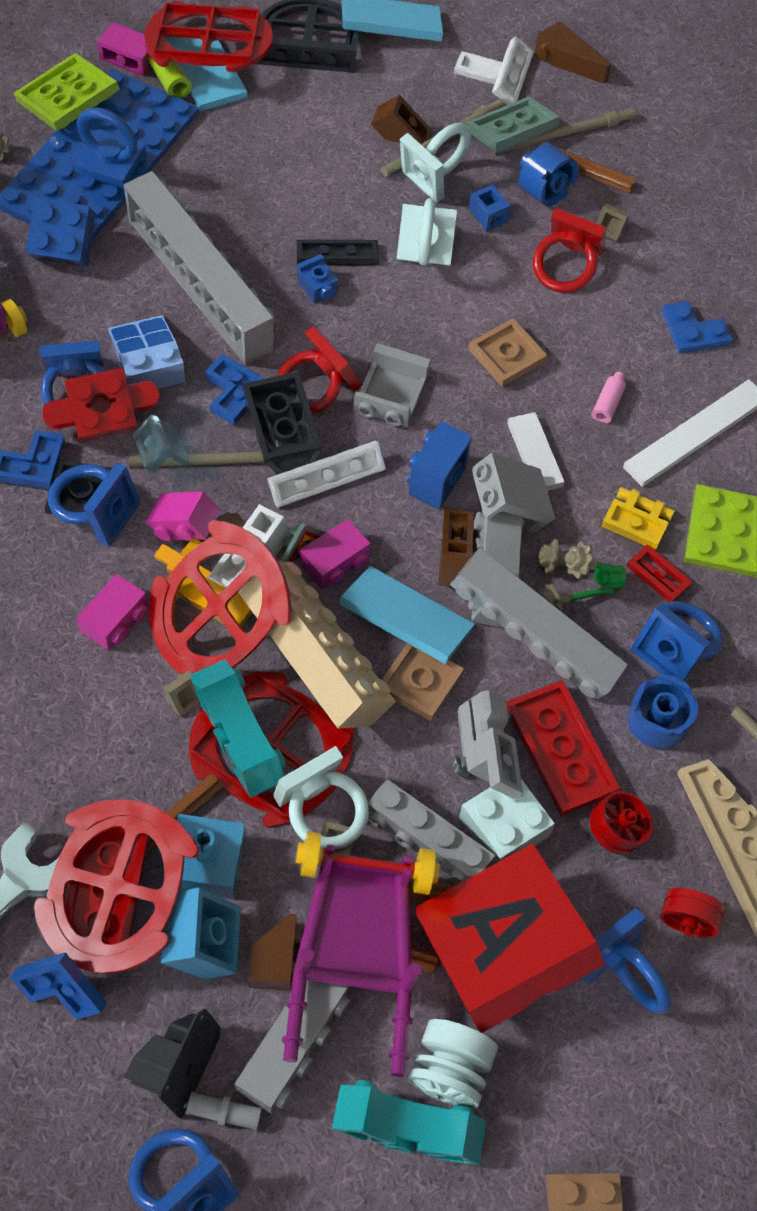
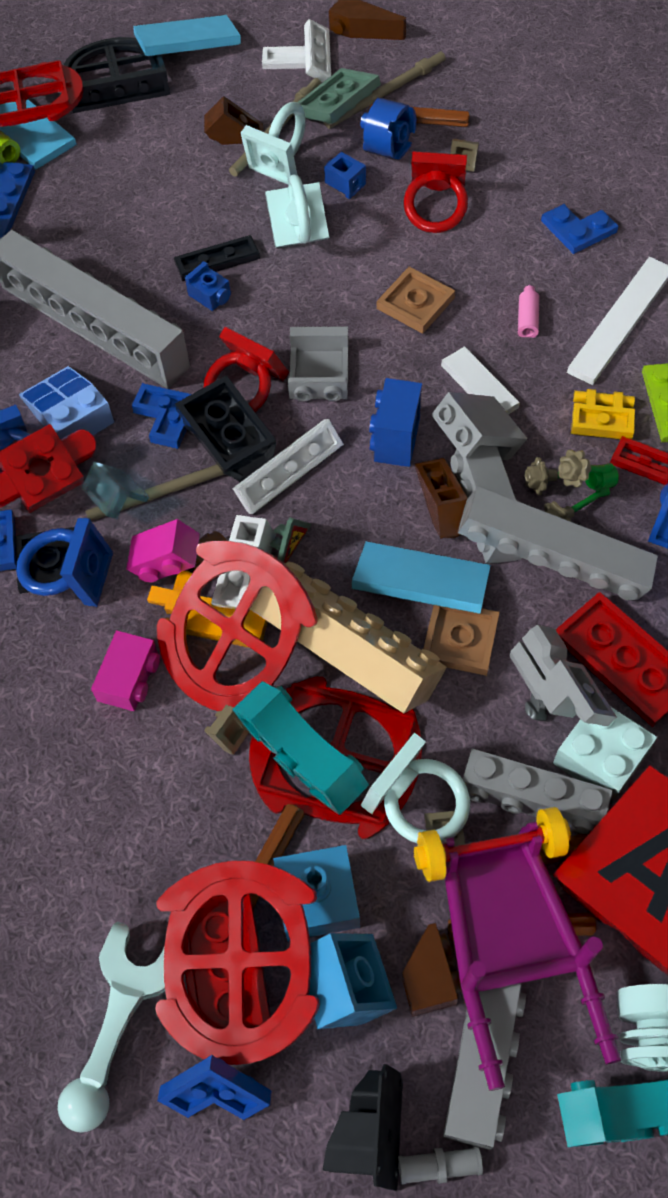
camera: 10 degrees left, 0 degrees up
(335, 554) = (327, 541): dark pink brick -> none

